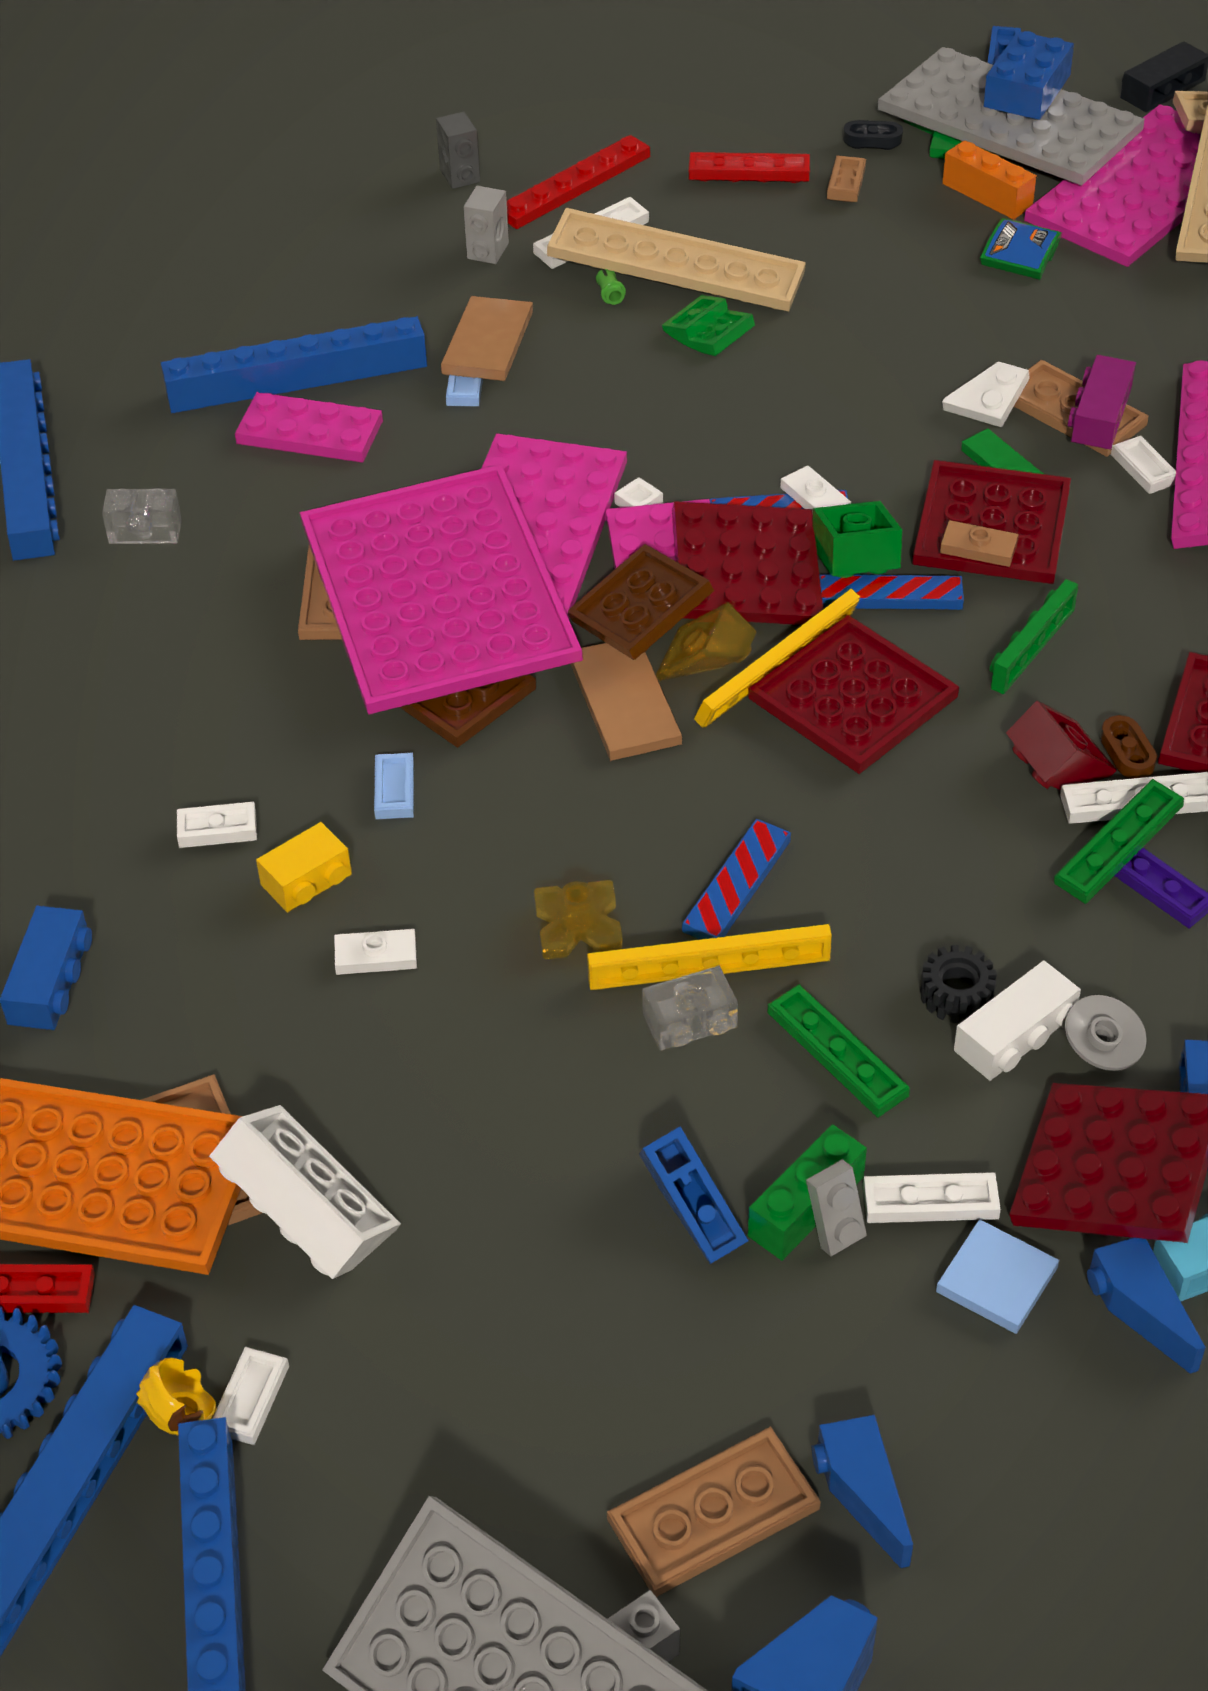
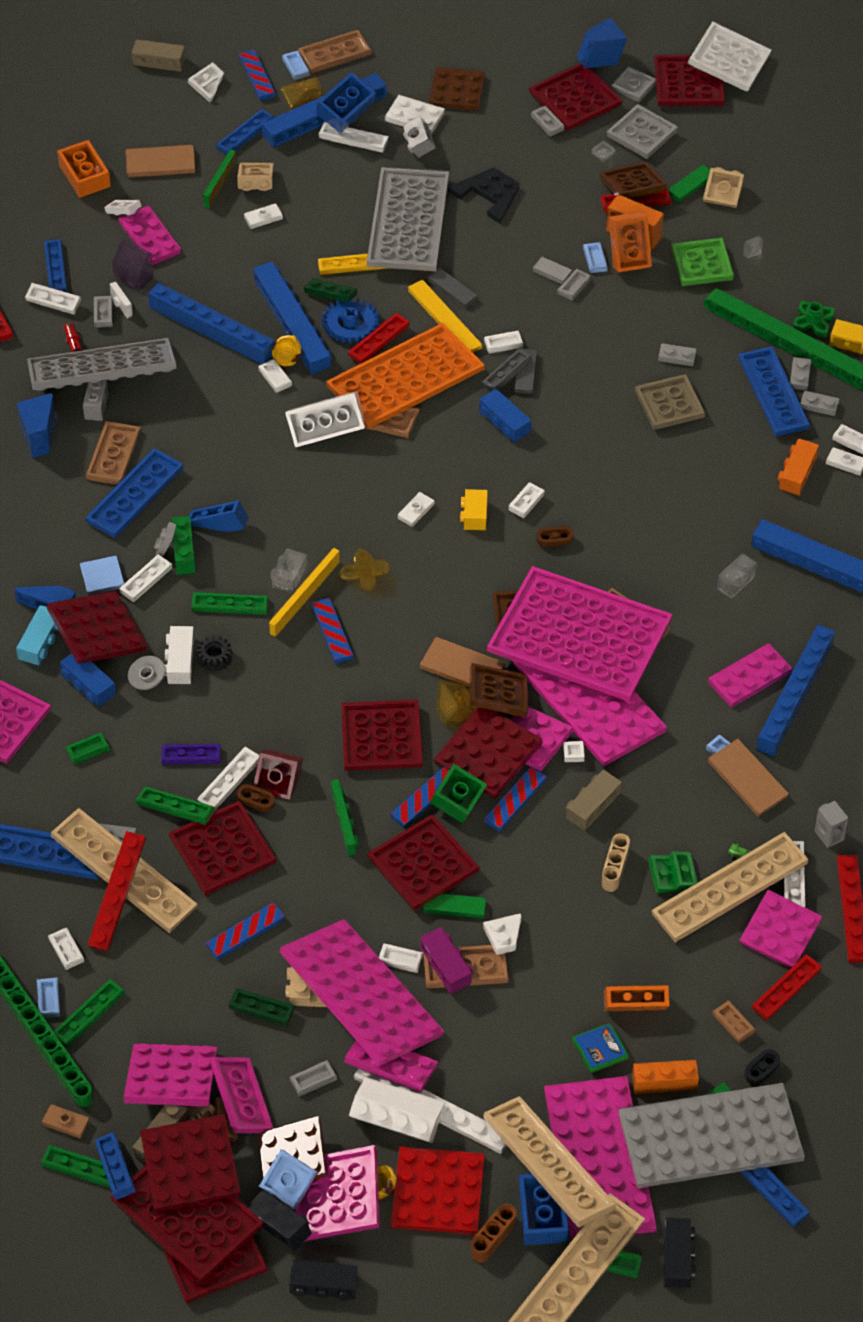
camera: 130 degrees right, 5 degrees up
(261, 746) = (554, 536): none -> reddish brown plate
(394, 786) = (493, 566): light blue tile -> none
(680, 202) = (780, 929): none -> dark pink plate
(694, 434) = (593, 799): none -> dark tan brick
(738, 686) = (425, 723): yellow tile -> none
(761, 366) = (615, 870): none -> tan beam
(773, 1378) = (134, 493): none -> blue plate
(811, 489) = (505, 809): white plate -> none
(863, 1482) = (76, 486): blue slope -> none
(927, 243) = (636, 998): none -> orange brick
(979, 543) = (410, 835): medium nougat plate -> none
(1028, 75) = (716, 1143): blue brick -> none
(1119, 841) = (215, 749): green tile -> none

